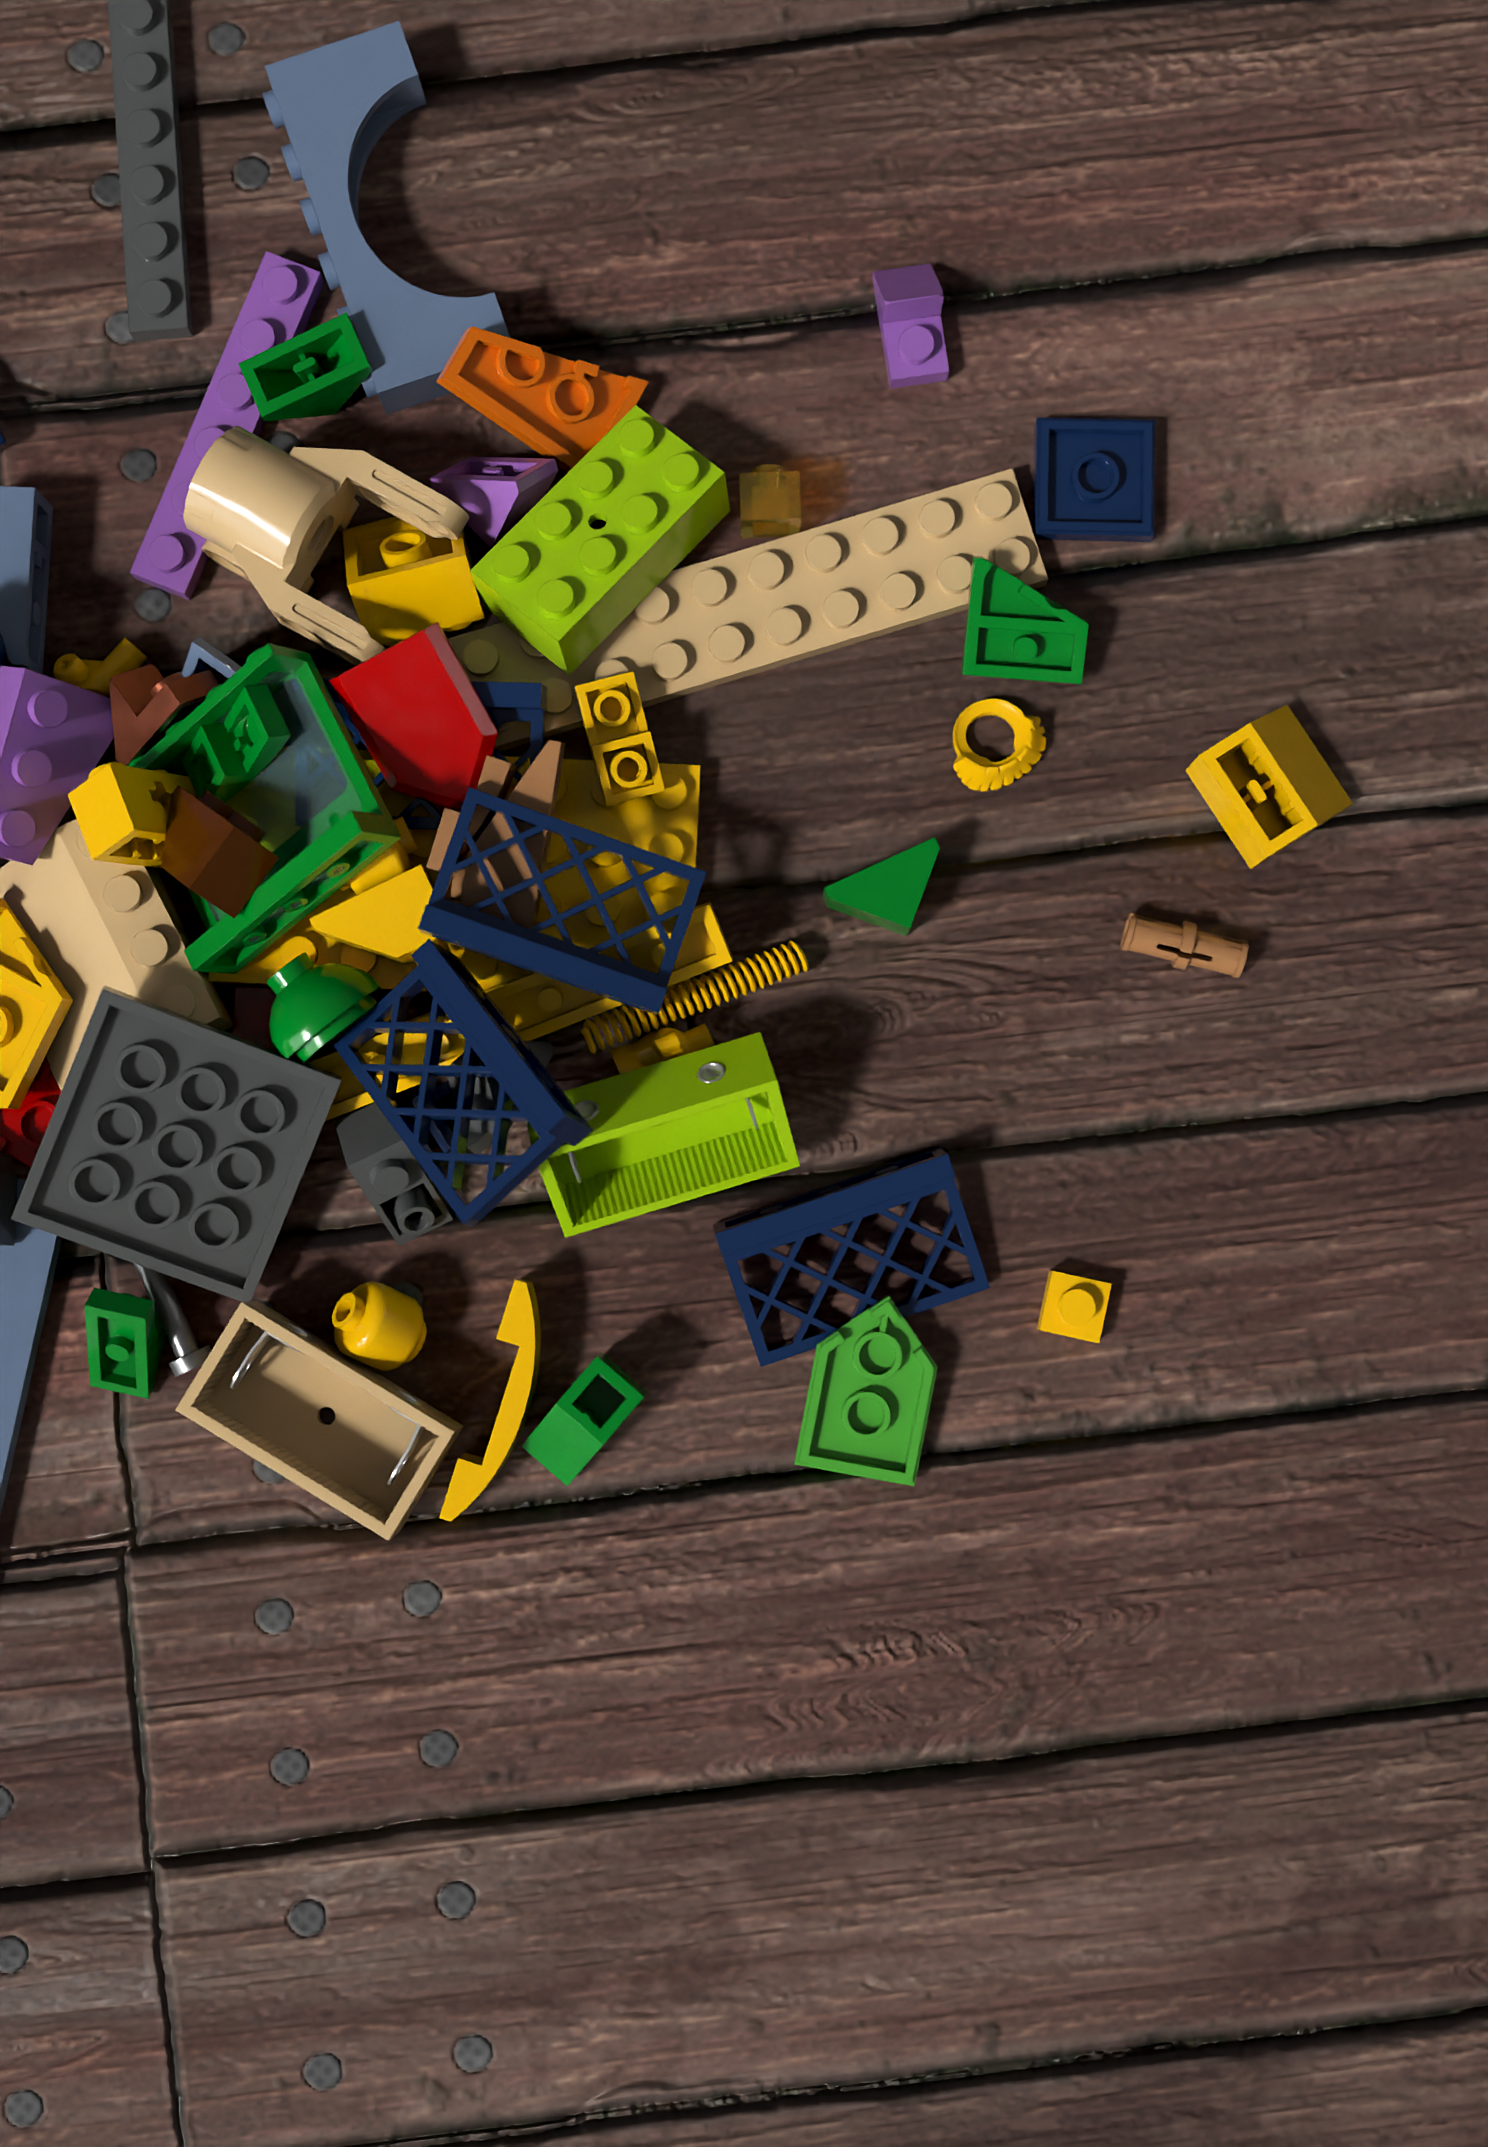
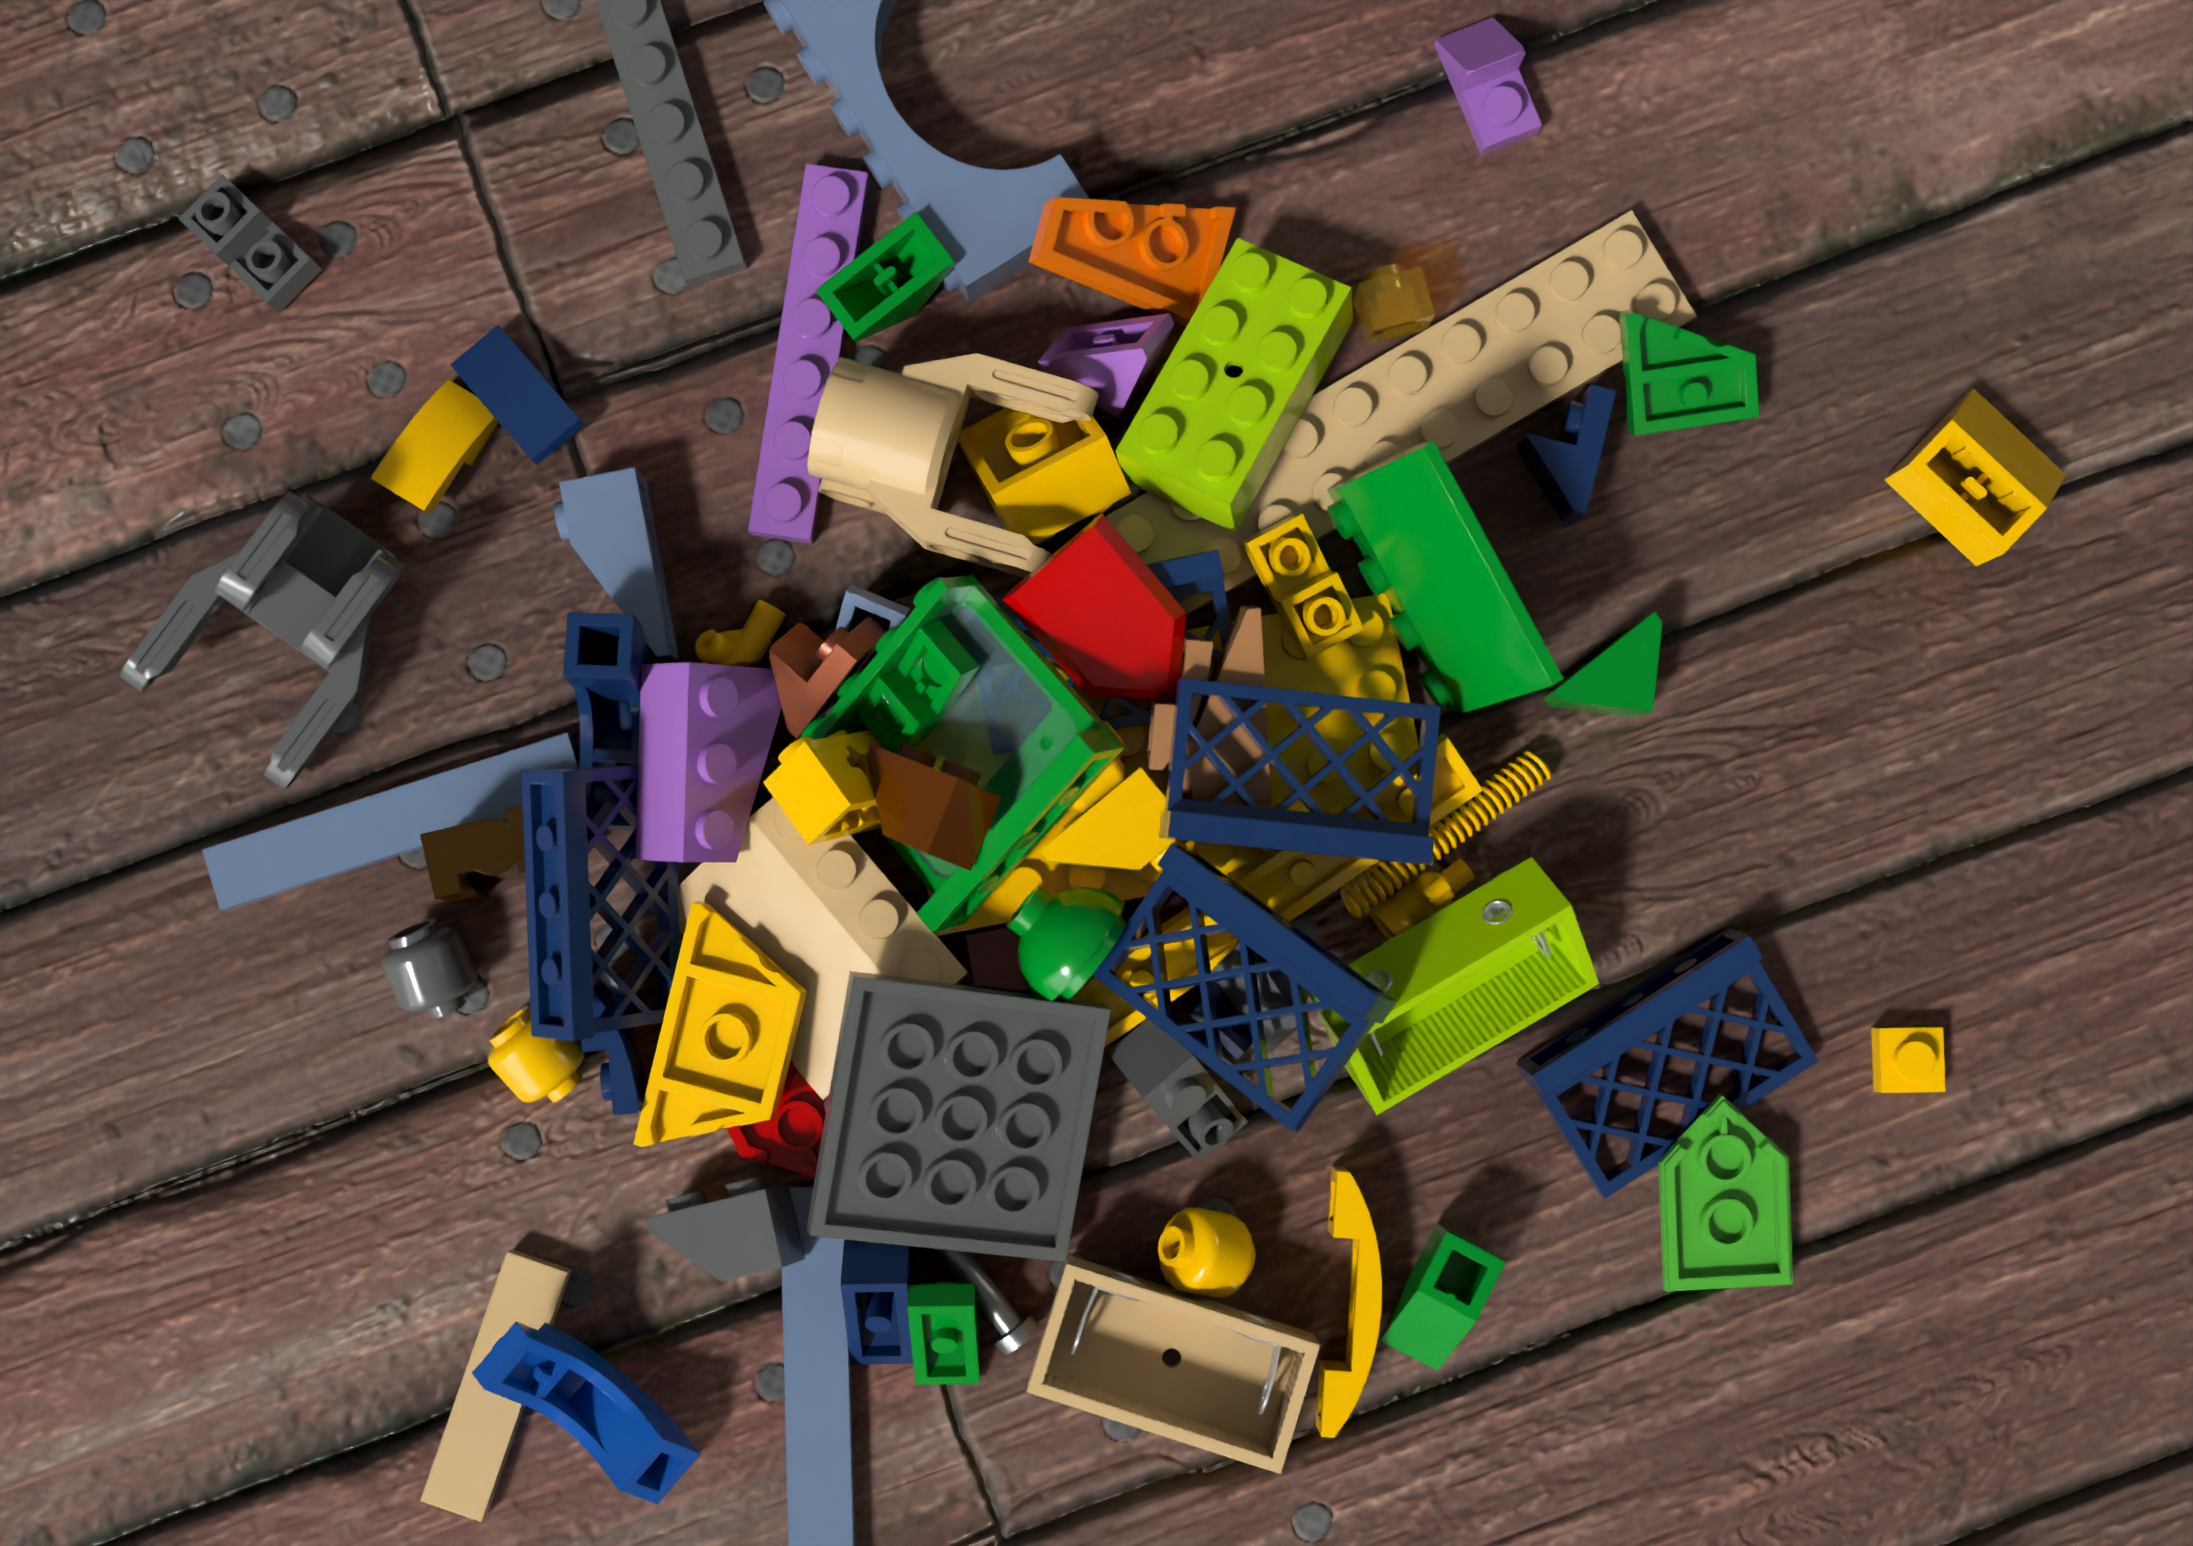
camera: 15 degrees left, 0 degrees up
(59, 1289) = (876, 1301): none -> dark blue slope
(736, 756) = (1441, 581): none -> green slope
(894, 689) = (1569, 469): none -> dark blue slope
(981, 773) = (1674, 531): yellow piece -> none
(1094, 479) = (1716, 201): dark blue tile -> none
(1184, 945) = (1929, 660): medium nougat pin -> none

